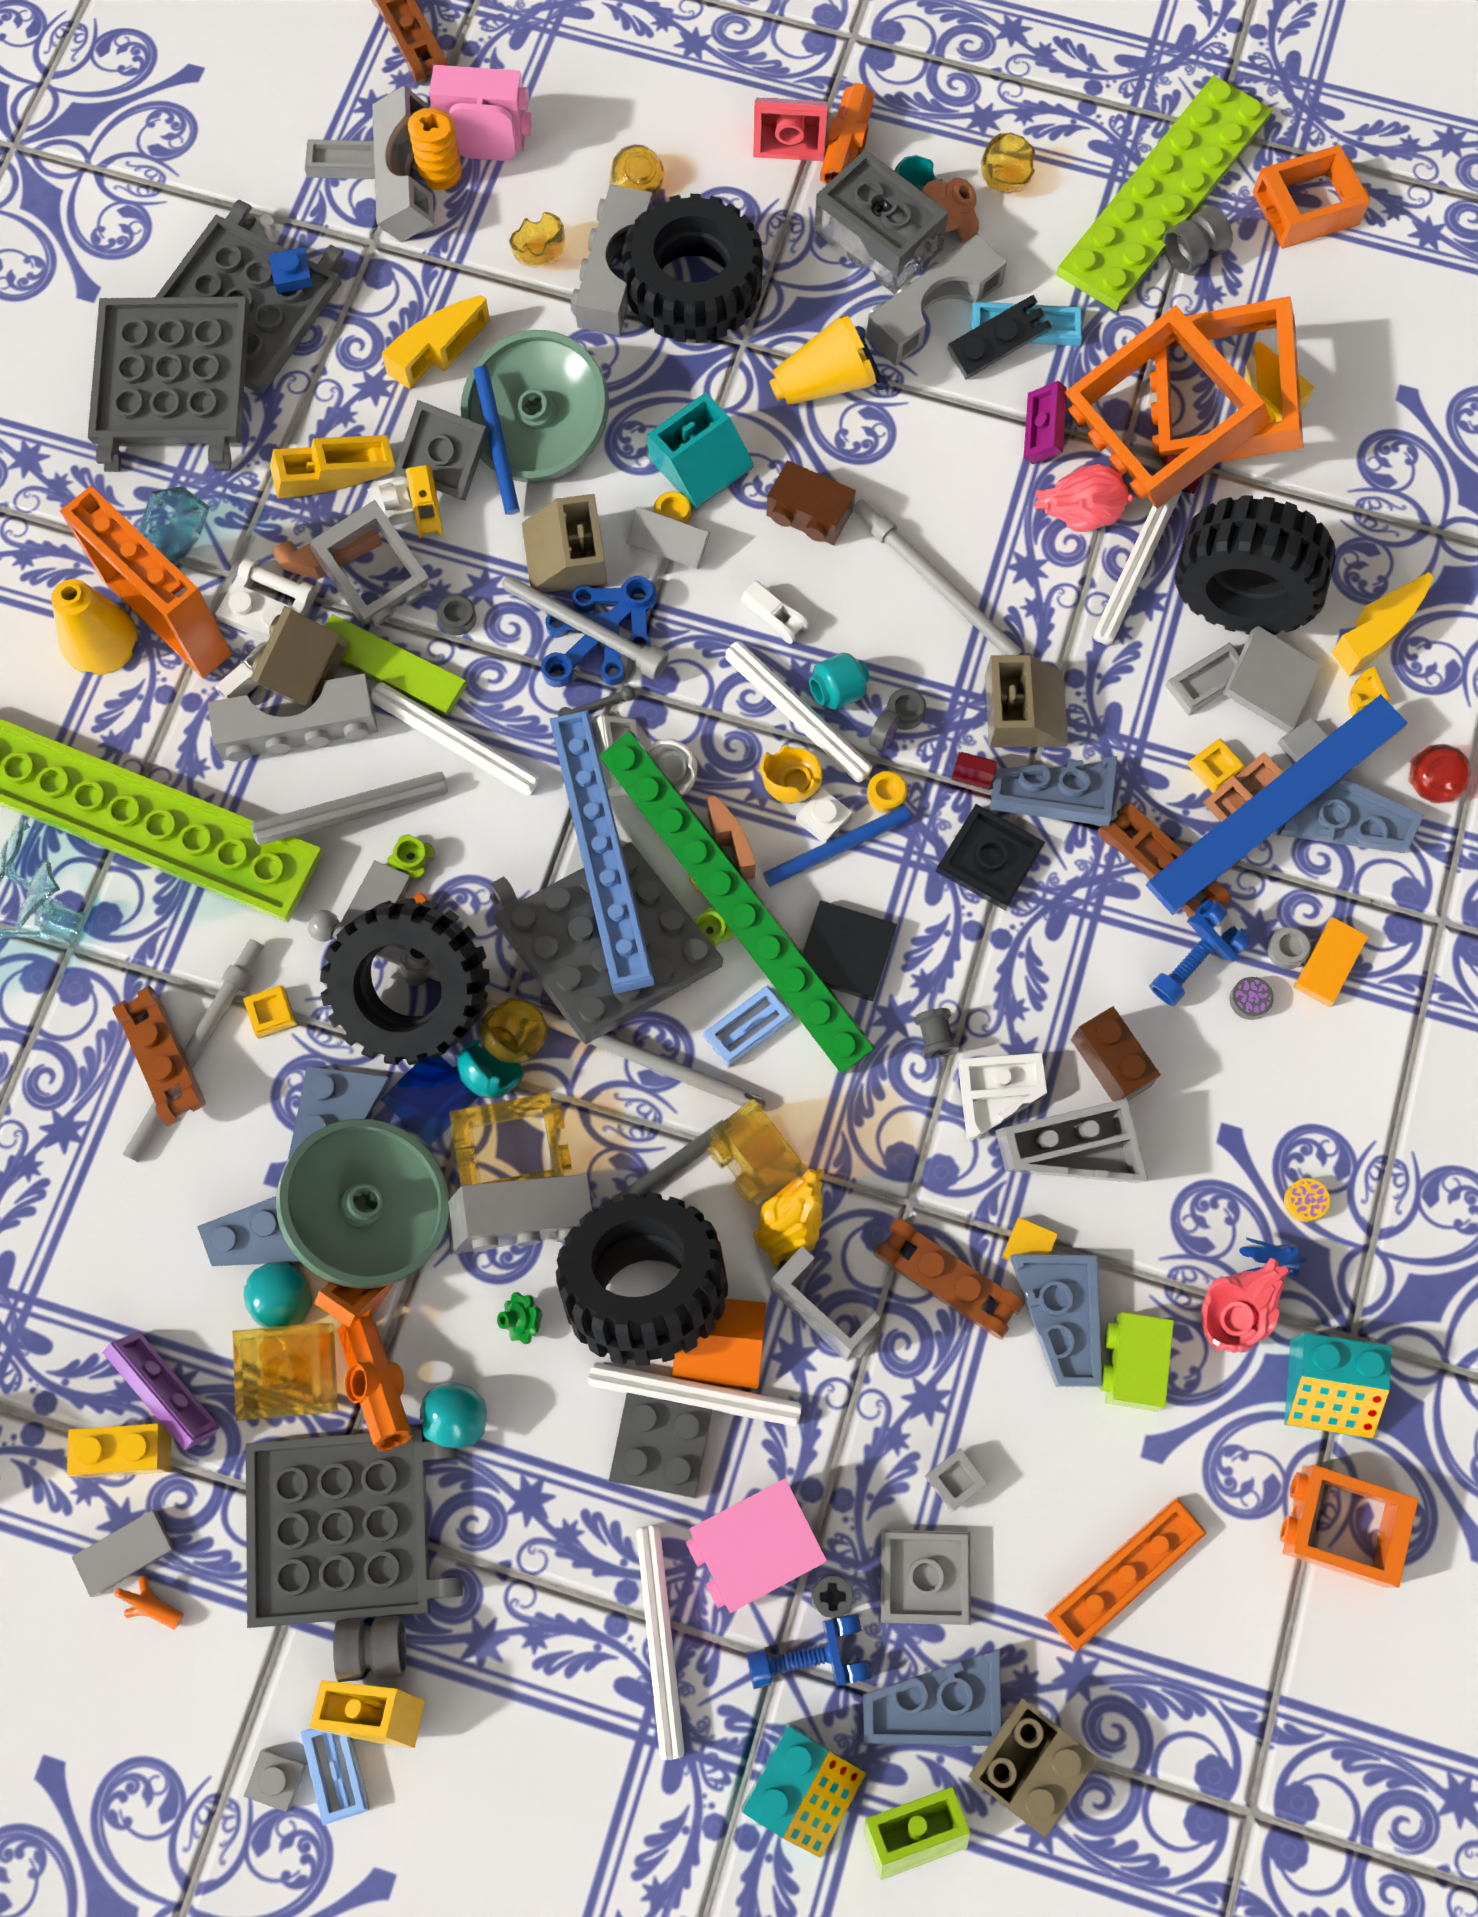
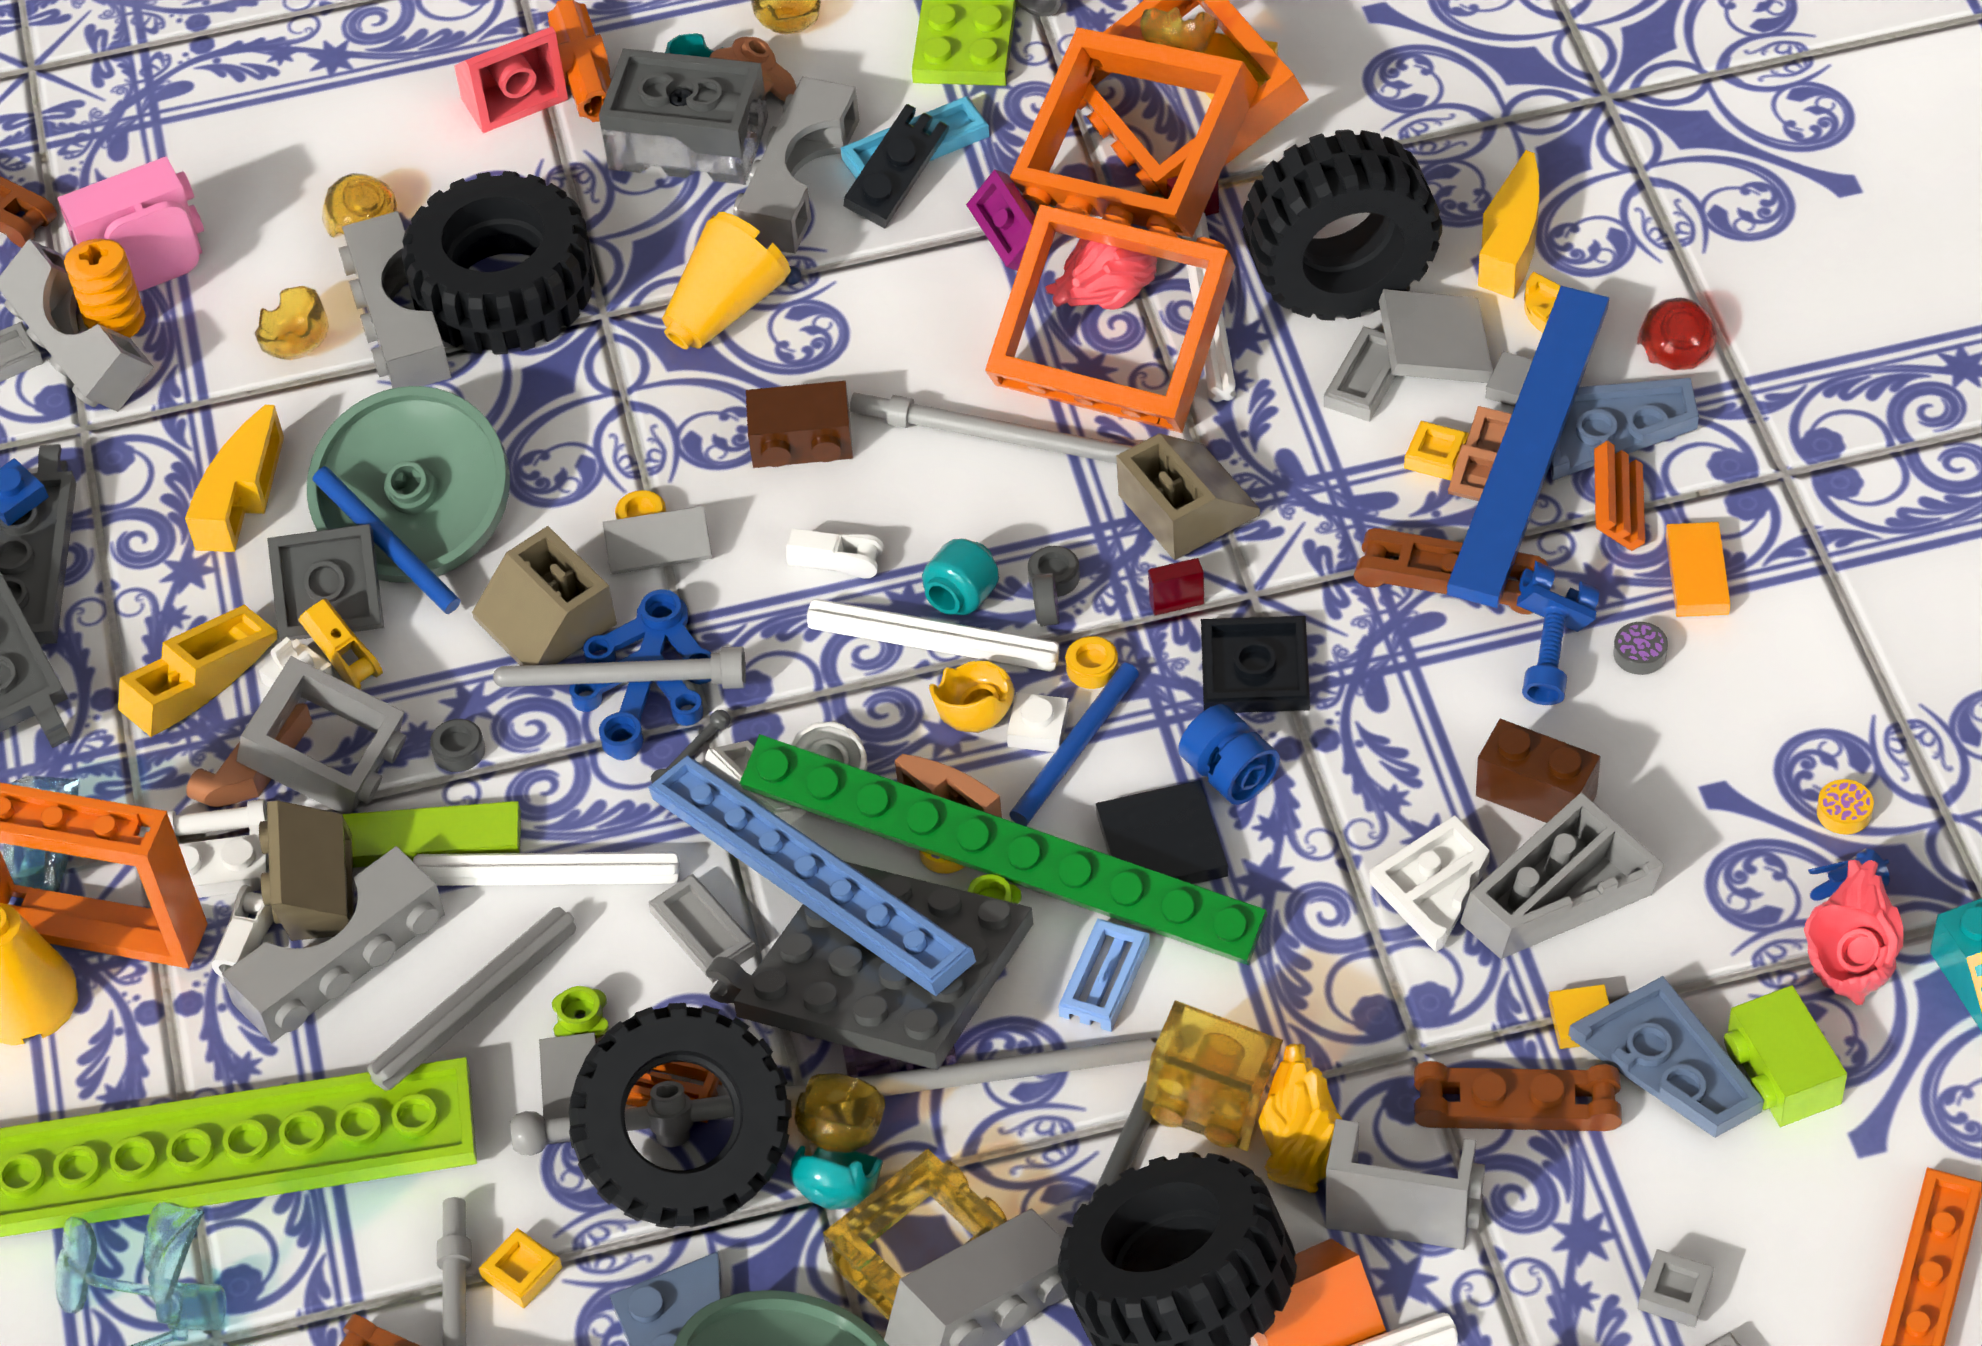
camera: 25 degrees left, 20 degrees down
(427, 1096) = (780, 1248): clear blue piece -> none
(523, 839) = (701, 924): none -> light grey tile
(699, 450) = (633, 434): teal slope -> none
(925, 920) = (1229, 754): none -> blue wheel
(936, 1033) = (1324, 861): dark grey bush -> none
(1062, 793) = (1292, 557): sand blue wing -> none
(1109, 590) = (1092, 393): none -> orange window
(1242, 356) = (1172, 31): none -> clear yellow hair
(1289, 947) = (1643, 580): light grey tile -> none
(1313, 876) = (1619, 496): none -> orange tile

